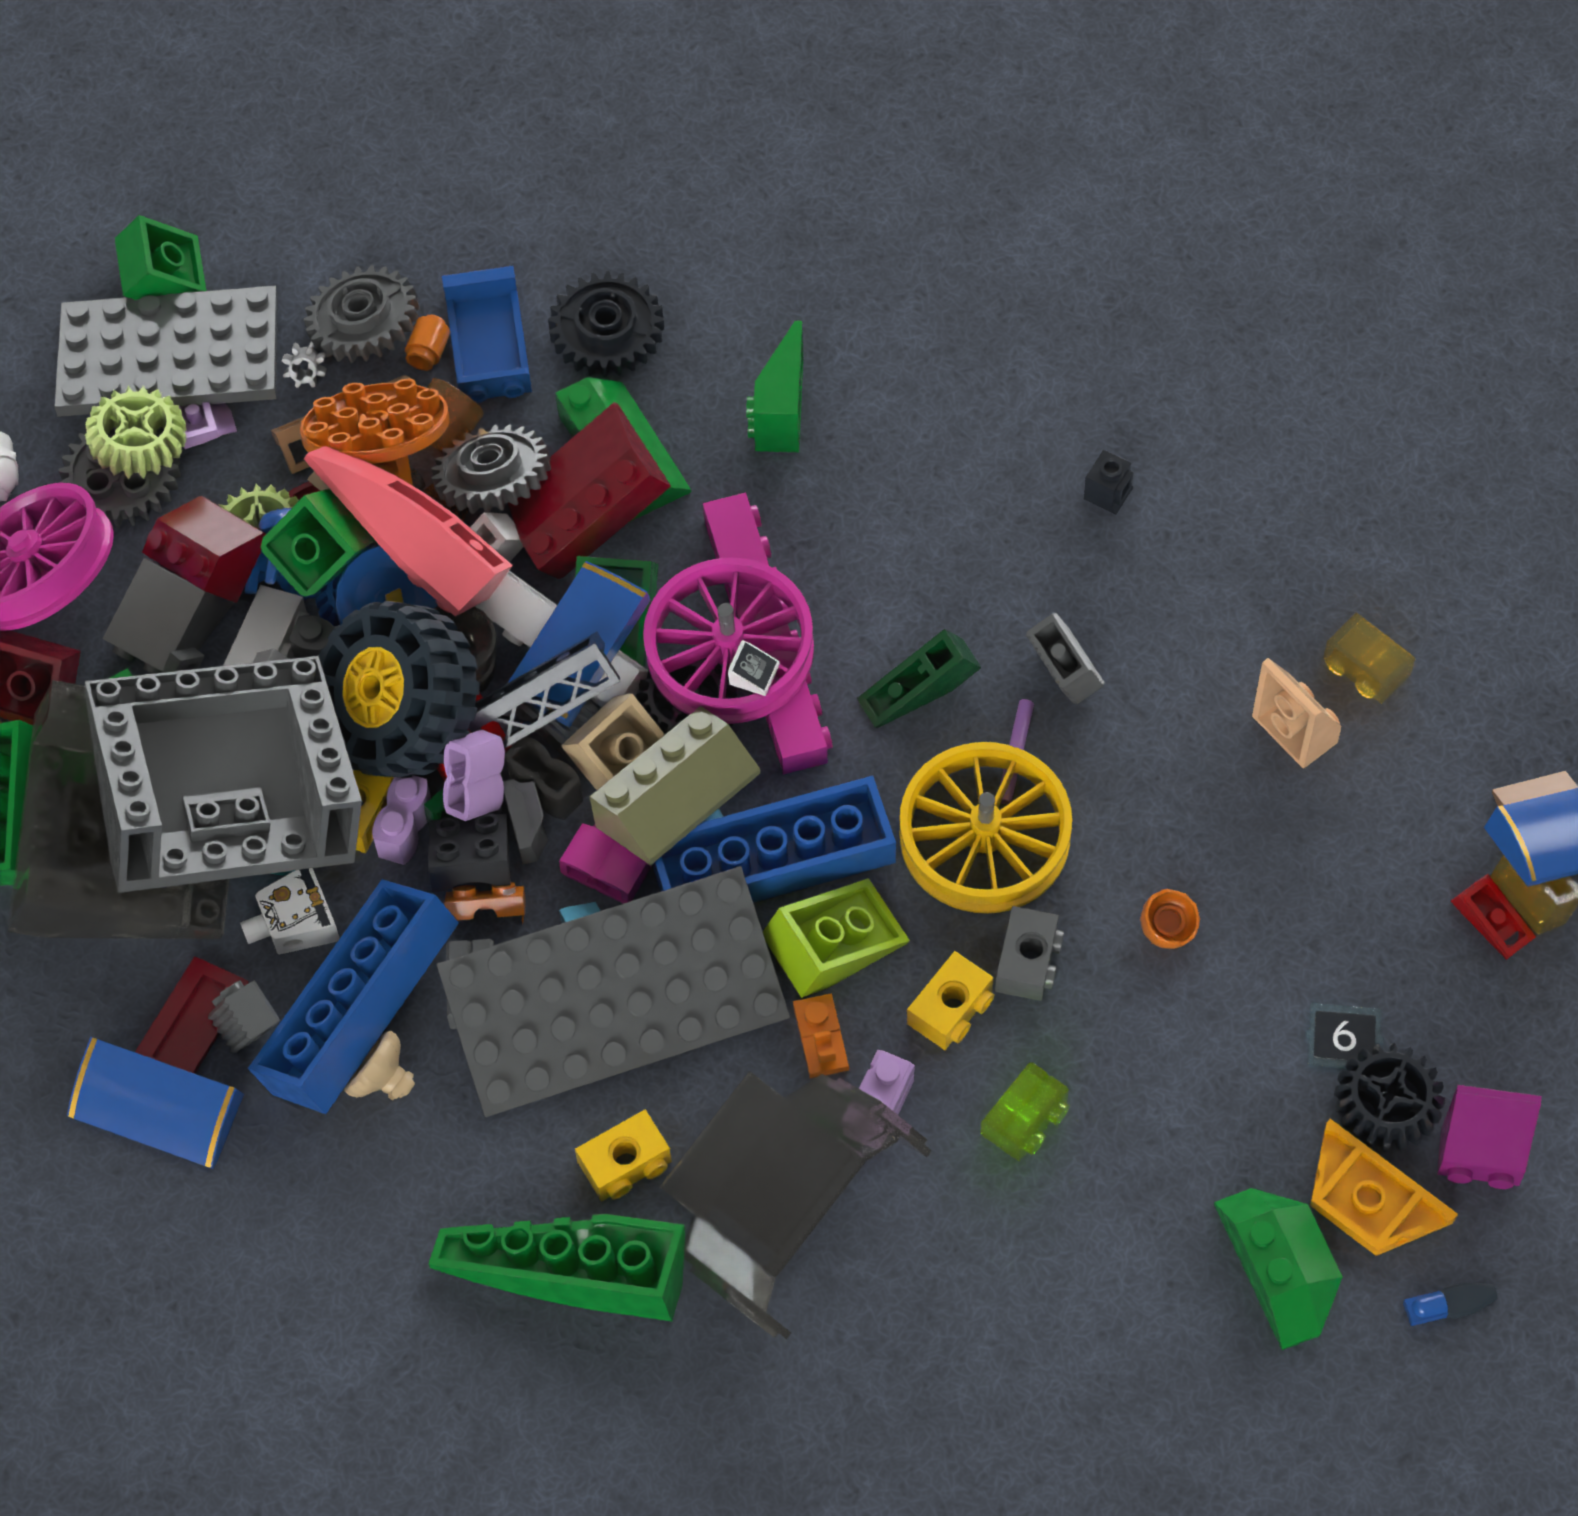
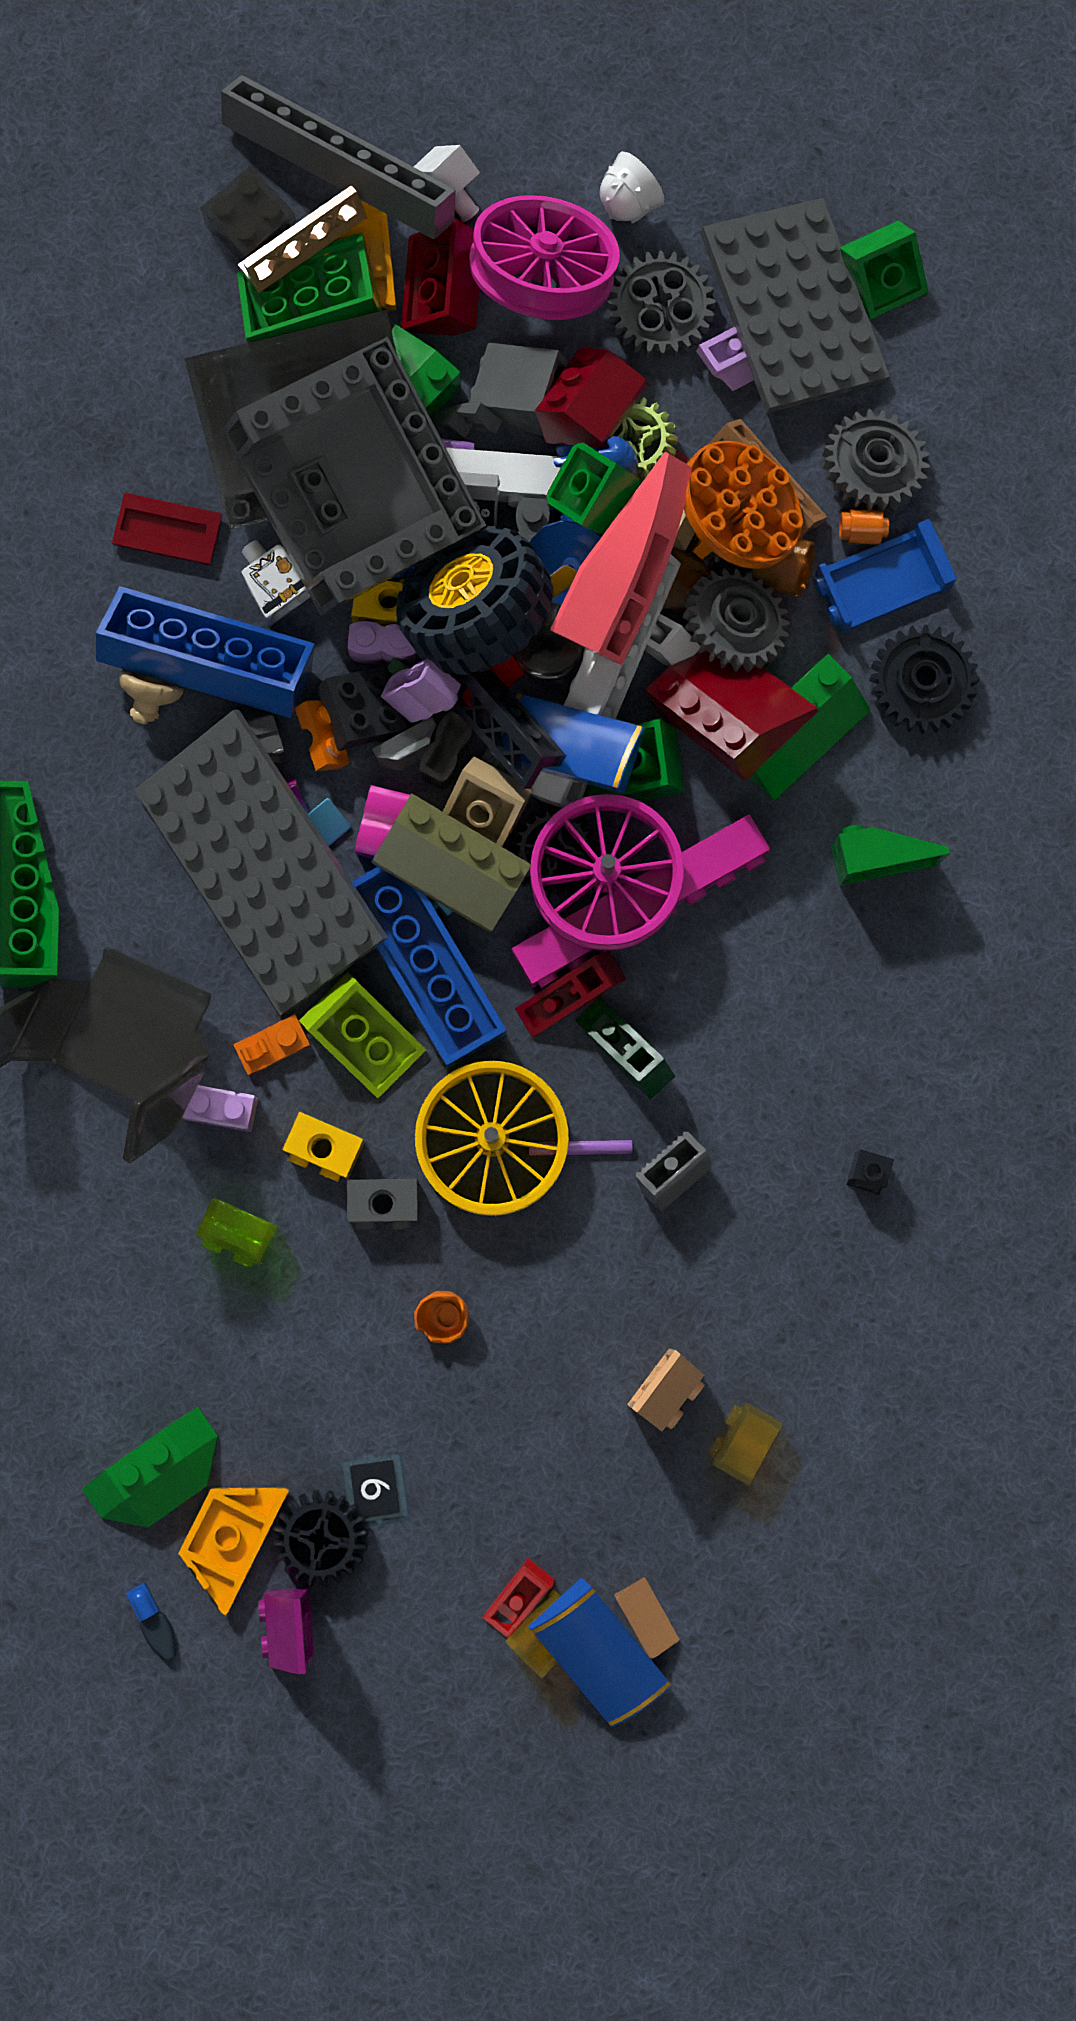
camera: 70 degrees right, 20 degrees up
(136, 420) = (678, 296): yellowish green gear -> none
(153, 1103) = (86, 522): blue slope -> none
(242, 1015) = (163, 568): dark grey brick -> none
(294, 362) = (809, 426): light grey gear -> none
(633, 1136) = (112, 893): yellow brick -> none
(752, 669) = (568, 900): slope -> none
(847, 720) = (570, 993): none -> dark red slope

